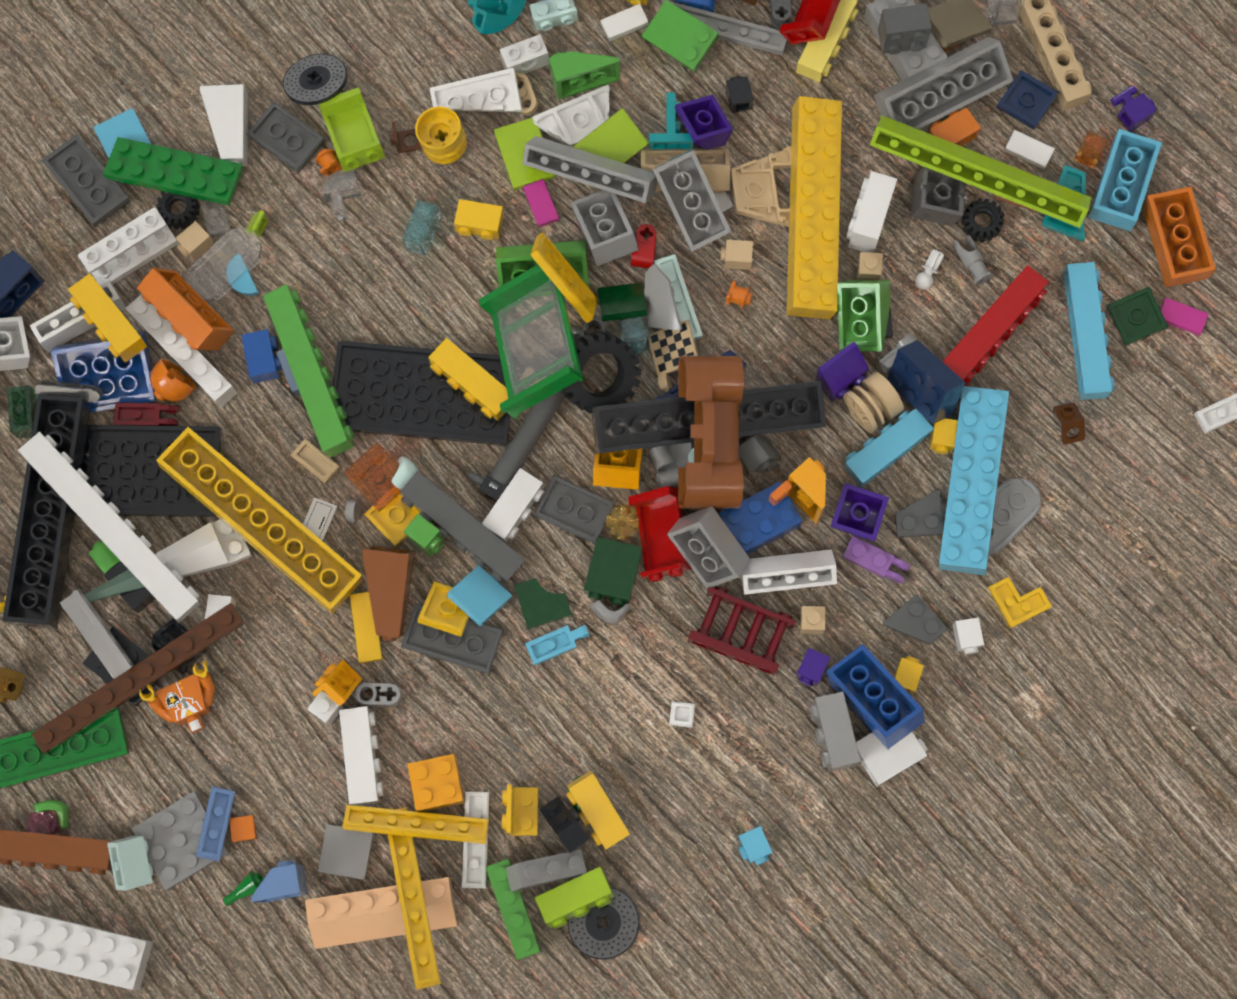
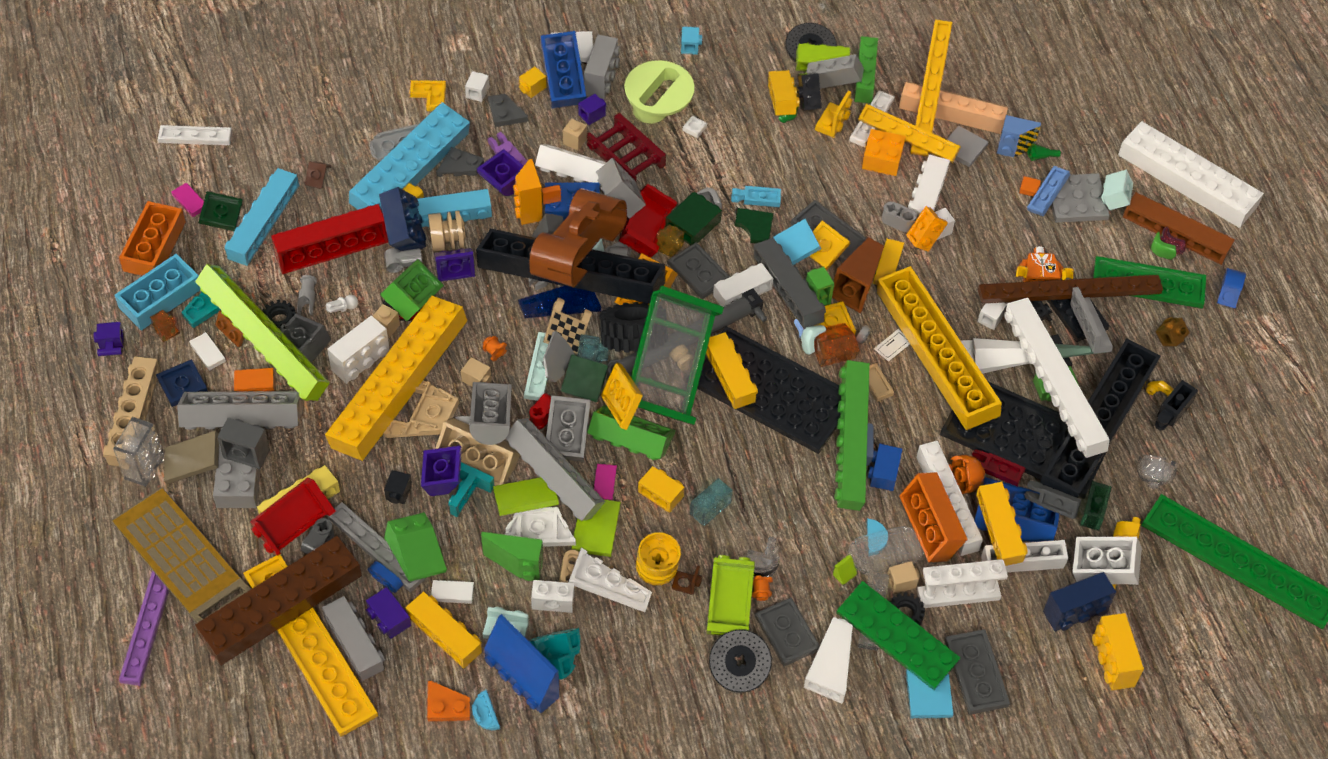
camera: 160 degrees left, 20 degrees down
(776, 737) = (647, 78): none -> yellowish green piece

